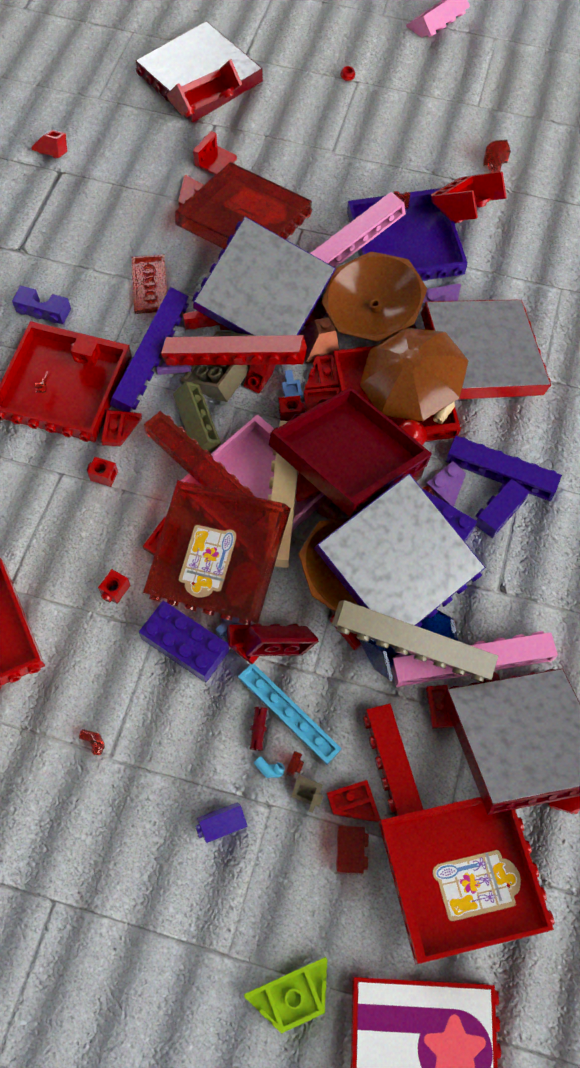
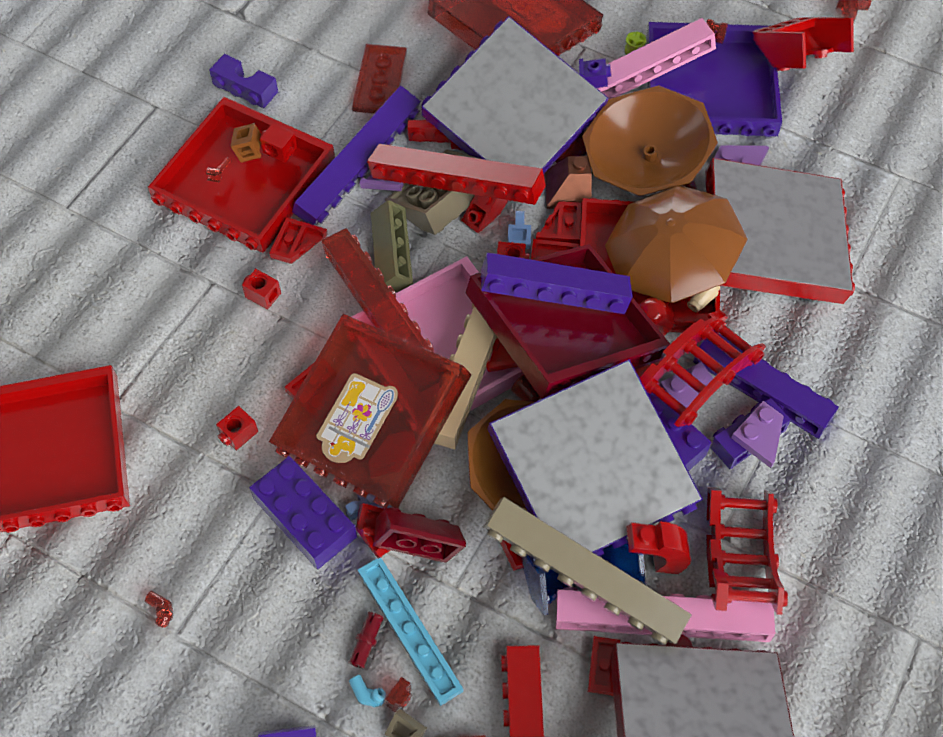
camera: 15 degrees right, 5 degrees down
(60, 356) = (246, 142): none -> dark orange brick
(320, 248) = (595, 71): none -> dark purple brick
(336, 424) = (555, 283): none -> dark purple brick
(341, 219) = (634, 41): none -> lime wheel
(444, 451) = (687, 344): none -> red fence
(464, 607) = (664, 541): none -> red arch
(501, 608) = (717, 558): none -> red fence
(512, 507) = (761, 433): none -> medium lavender wing

